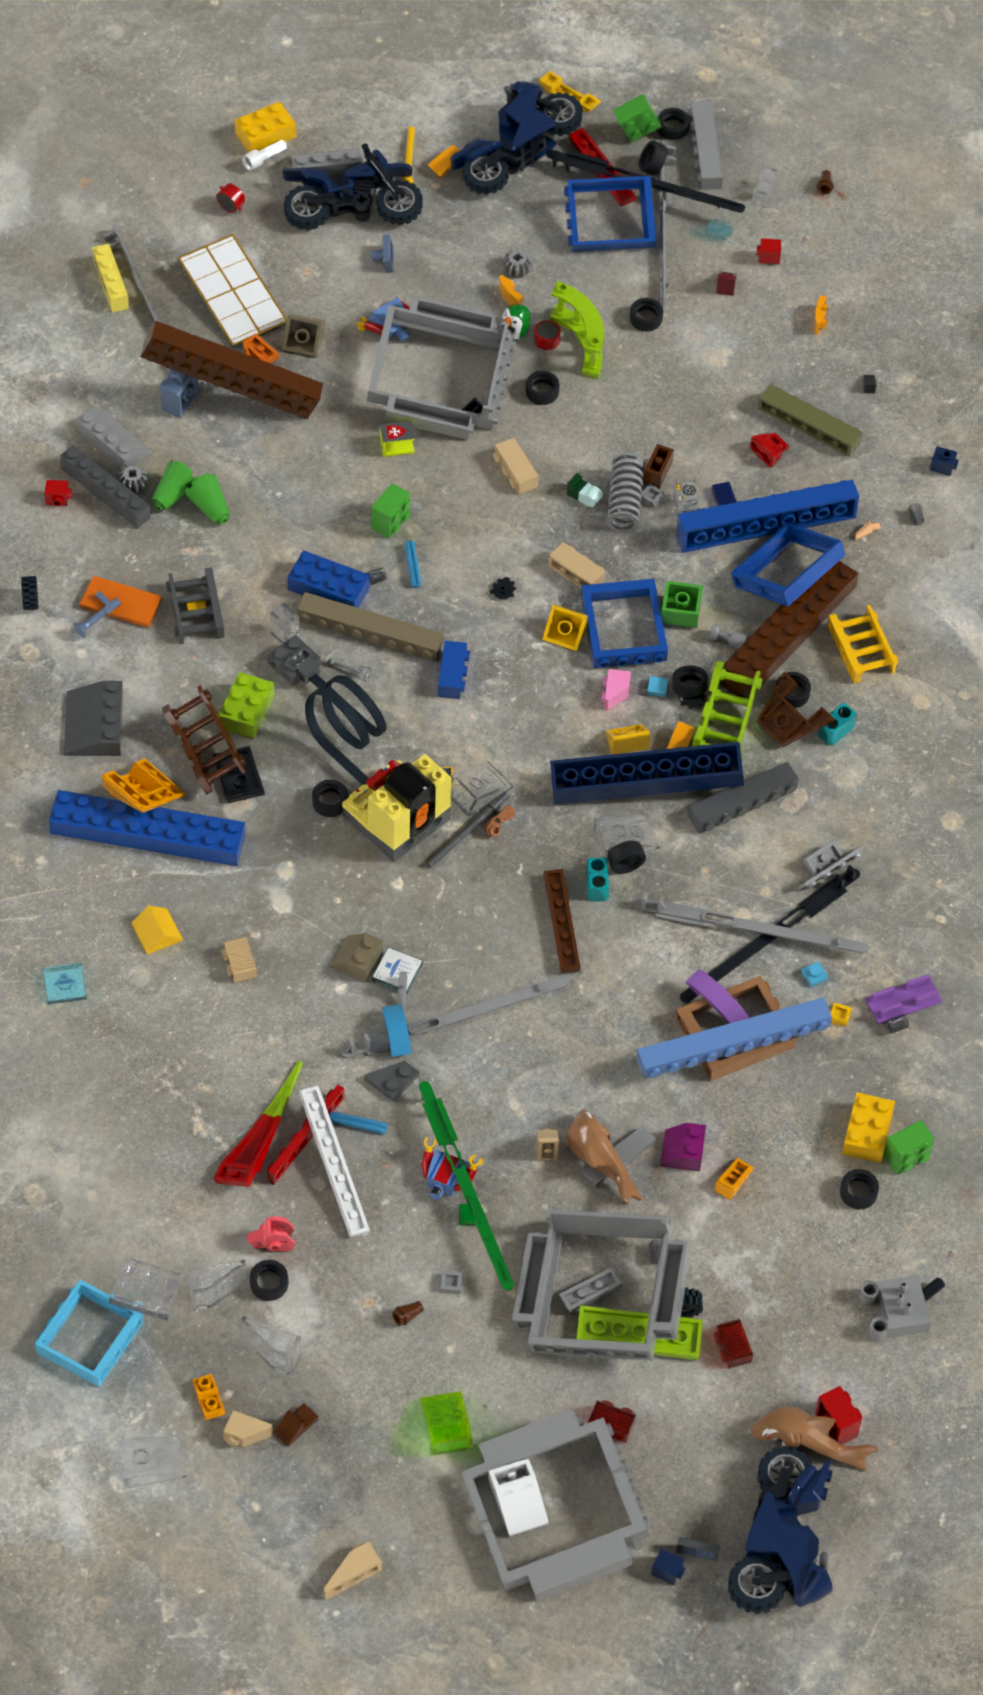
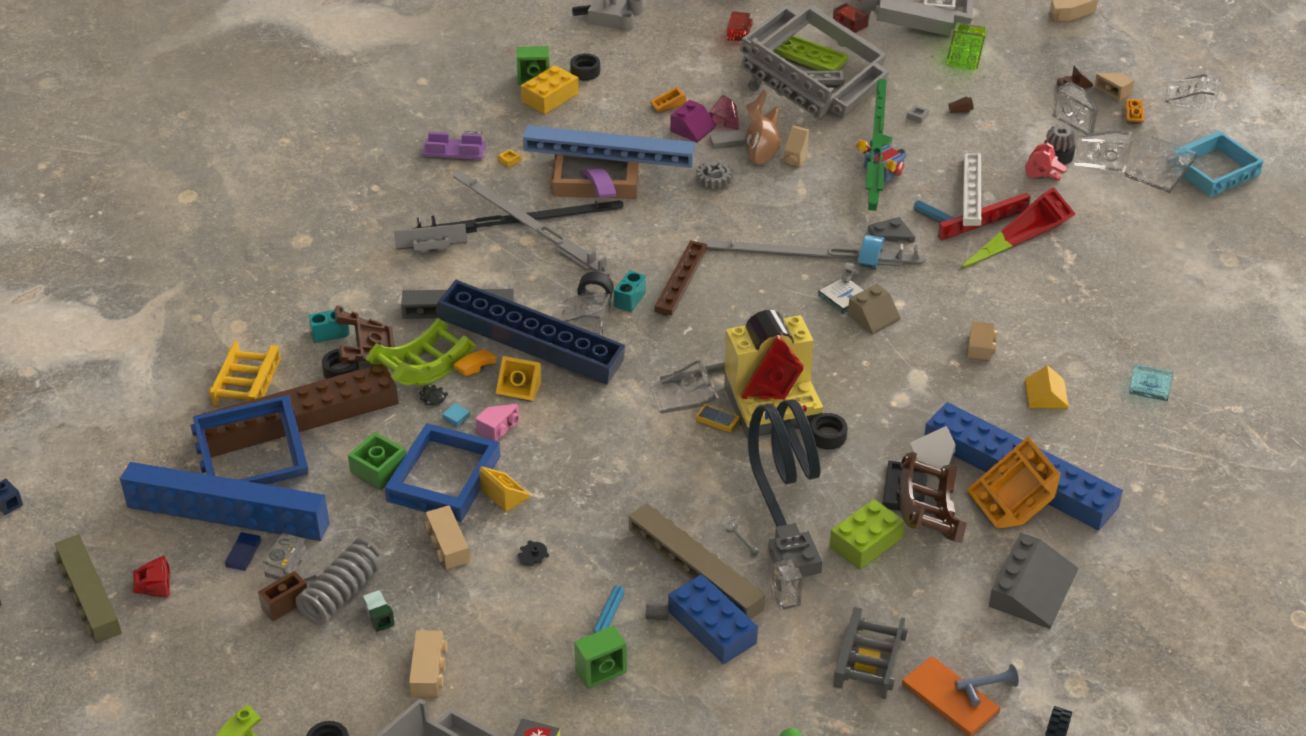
camera: 150 degrees left, 15 degrees down
(229, 806) = (935, 448): none -> white slope
(268, 1271) = (1061, 137): none -> light grey gear
(453, 669) = (641, 489): blue brick -> none
(492, 827) = (671, 364): nougat piece -> none
(603, 1075) = (714, 174): none -> light grey gear
(659, 1182) = (725, 111): none -> clear pink slope
(693, 673) = (425, 386): black tyre -> none
(735, 639) = (353, 420): light grey piece -> none
(814, 974) = (506, 185): medium azure plate -> none
(914, 514) = (83, 468): flat silver piece -> none

